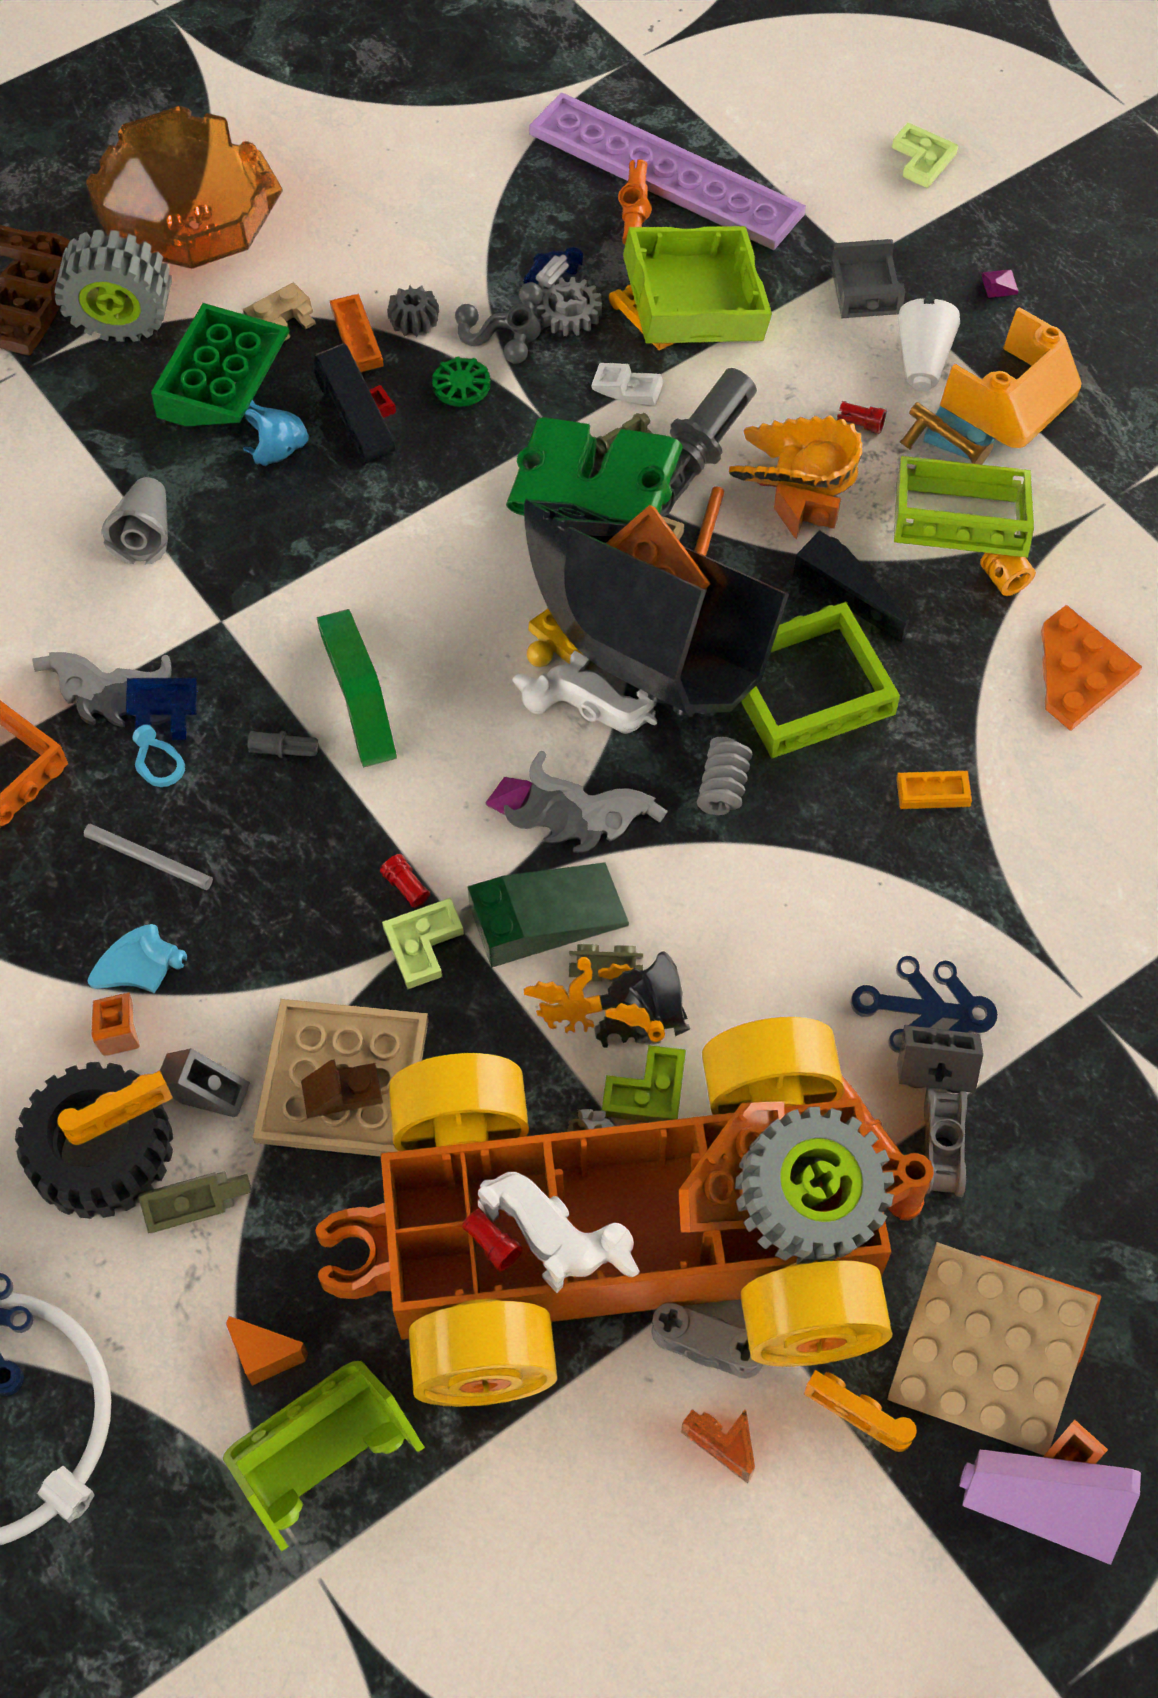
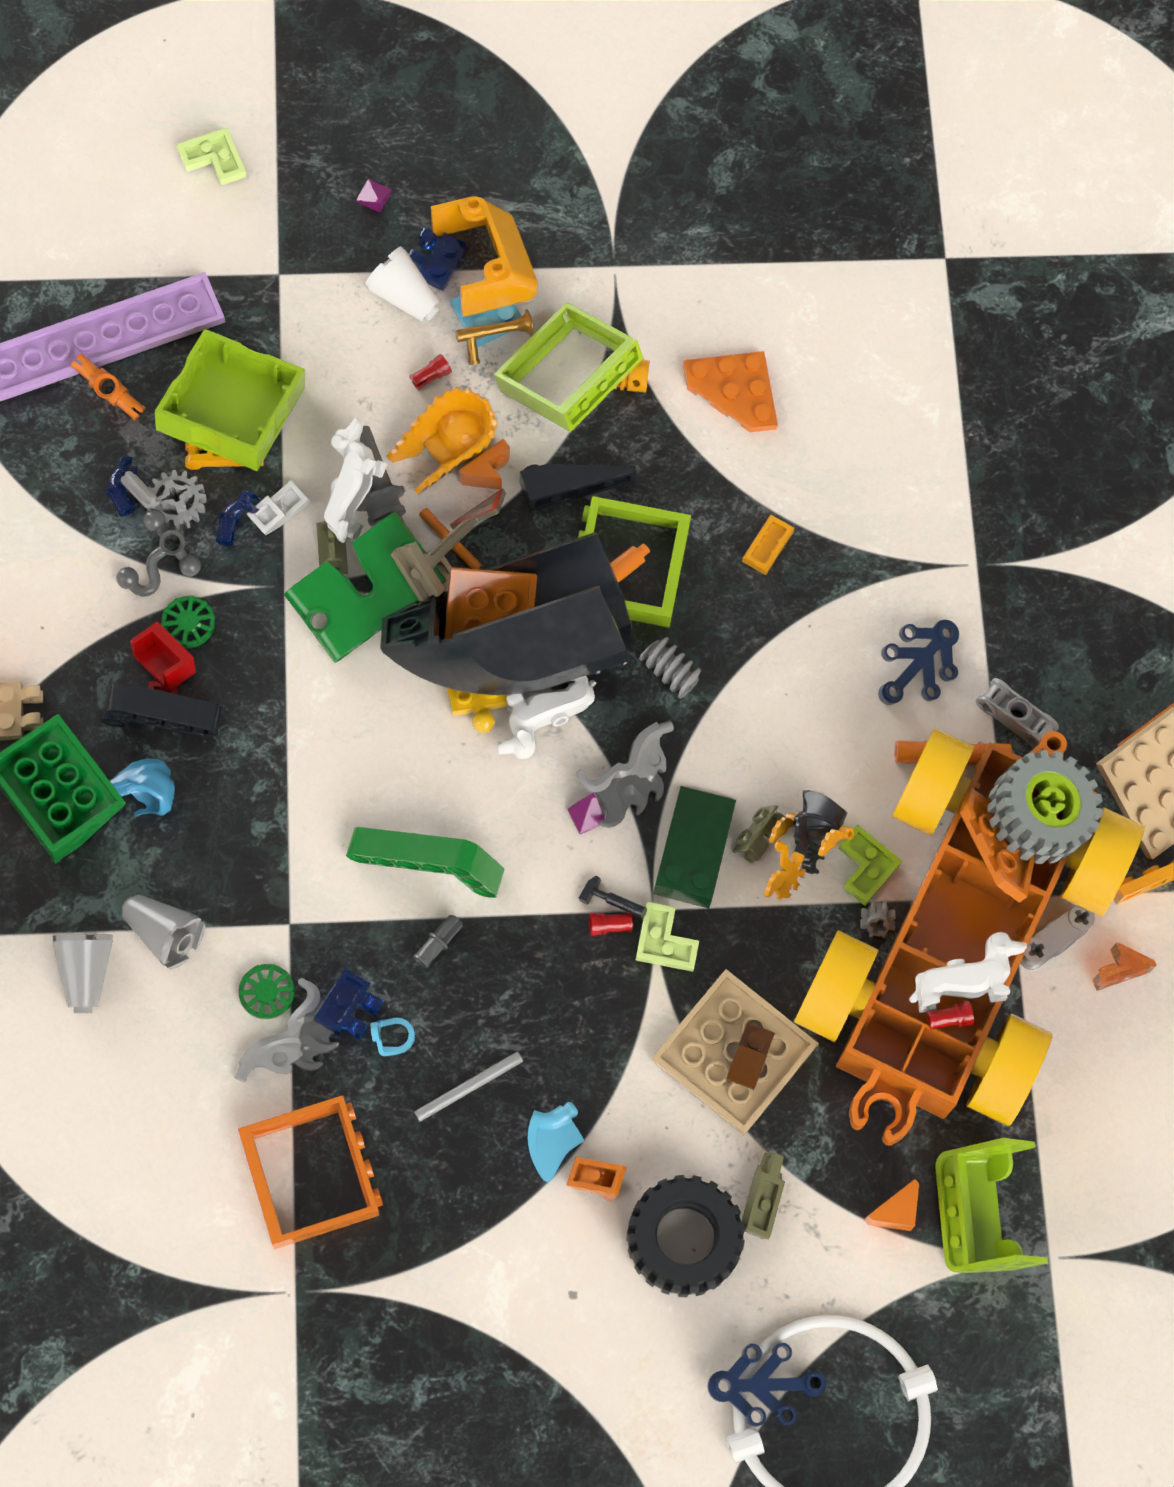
camera: 65 degrees left, 10 degrees up
(61, 483) = (82, 967): none -> light grey cone
(114, 1108) = (692, 1204): light orange plate -> none
(137, 637) = (266, 991): none -> green wheel
(203, 1083) = (680, 1146): dark grey slope -> none
(356, 331) = (81, 666): orange plate -> none
(409, 377) = (163, 656): none -> red panel
(413, 311) = (103, 617): dark grey gear -> none
(431, 846) = (615, 900): none -> black piece
(587, 353) = (230, 517): none -> clear blue piece
(634, 488) = (419, 567): none -> dark tan piece
(685, 394) = (353, 481): none -> white animal
(795, 665) = (629, 561): none -> orange cylinder
(866, 279) = (306, 281): dark grey panel -> none
(939, 1059) = (965, 677): dark grey brick -> none
(986, 361) = (443, 261): none -> clear blue plate

